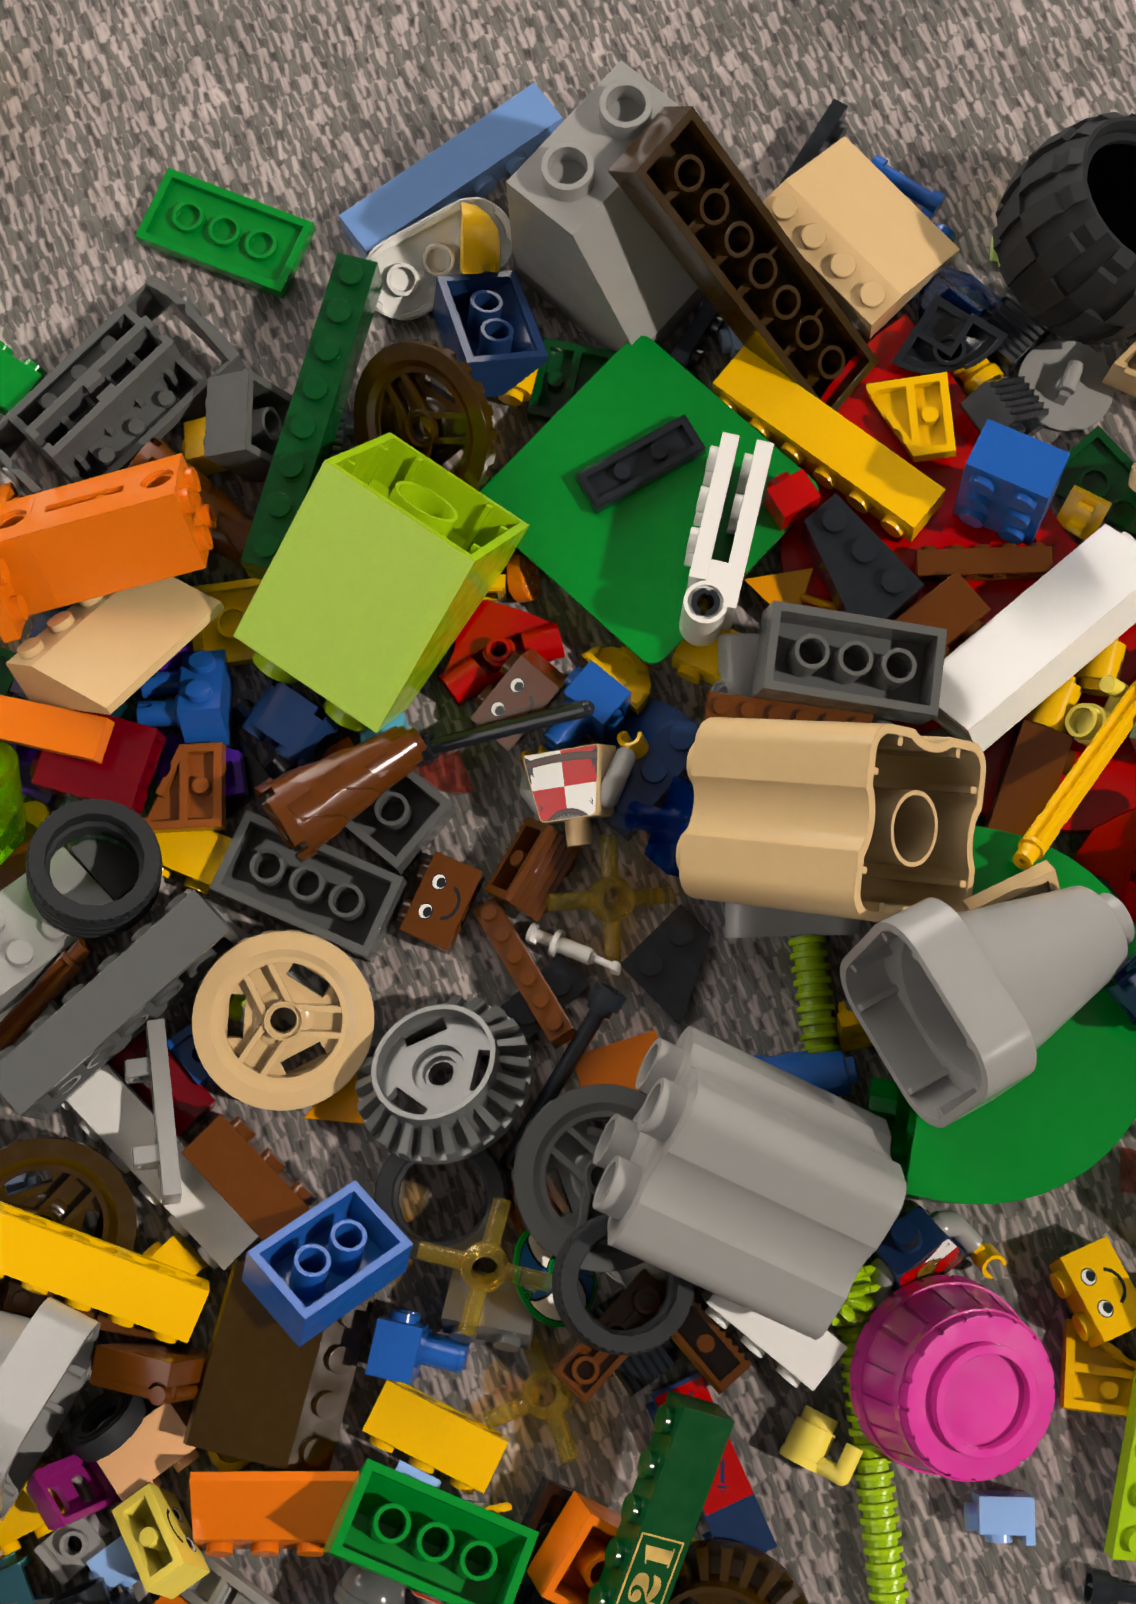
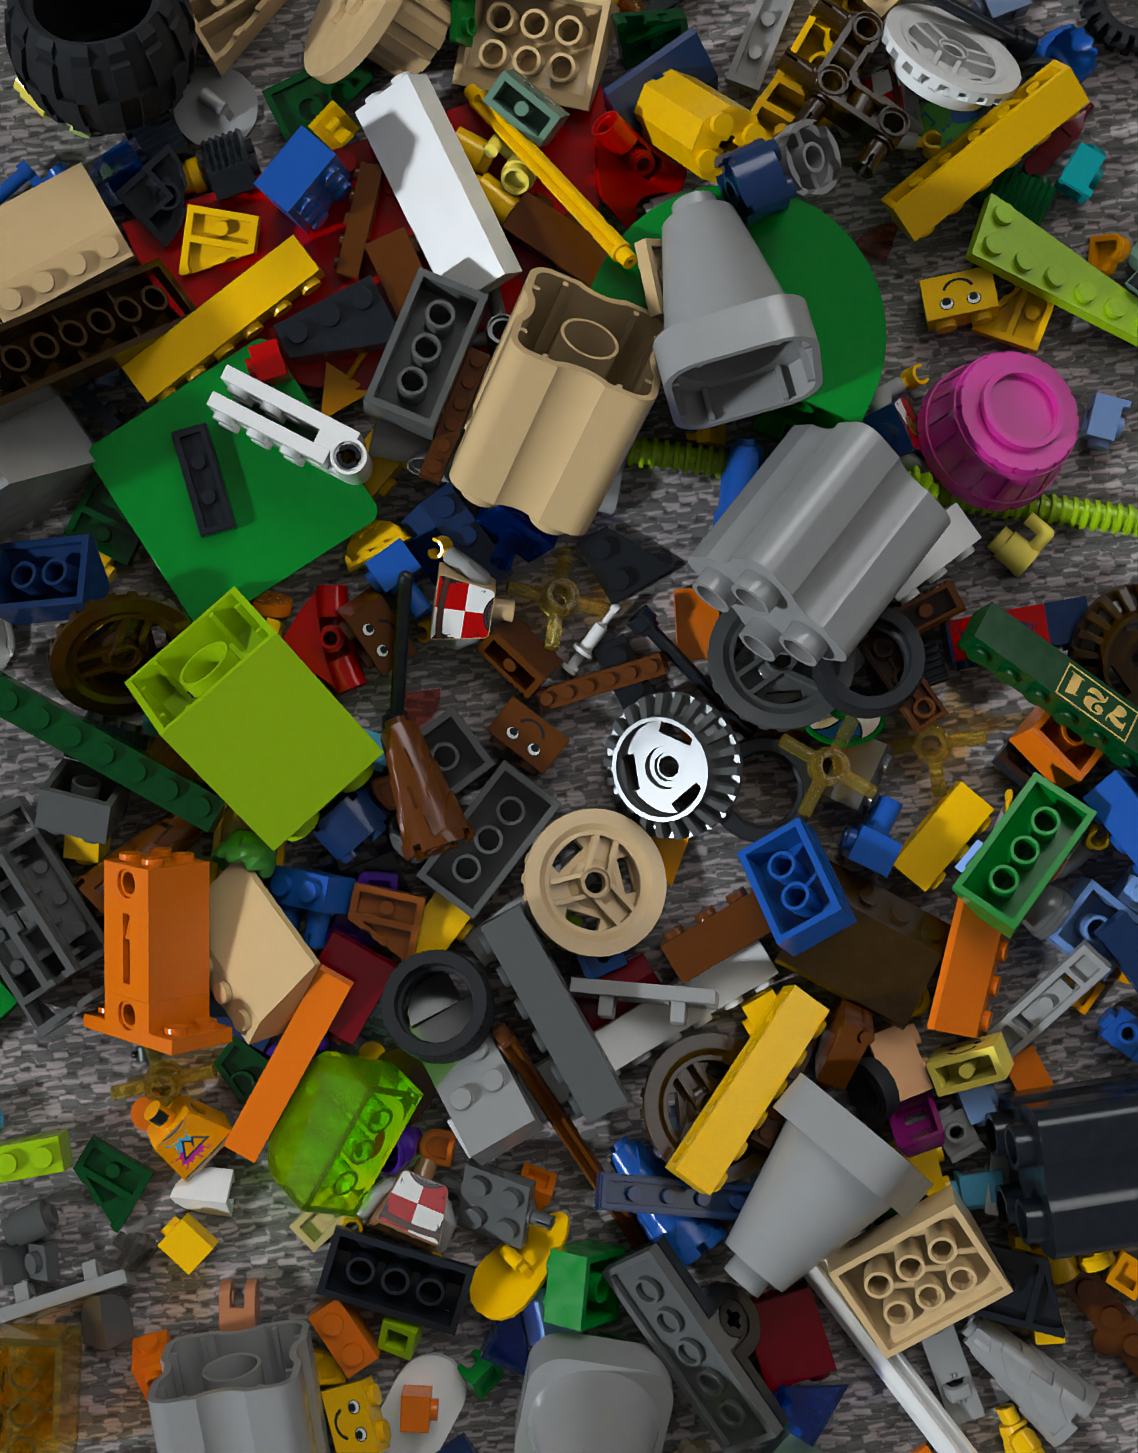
camera: 80 degrees left, 10 degrees up
(229, 607) = (246, 848): none -> bright green hair

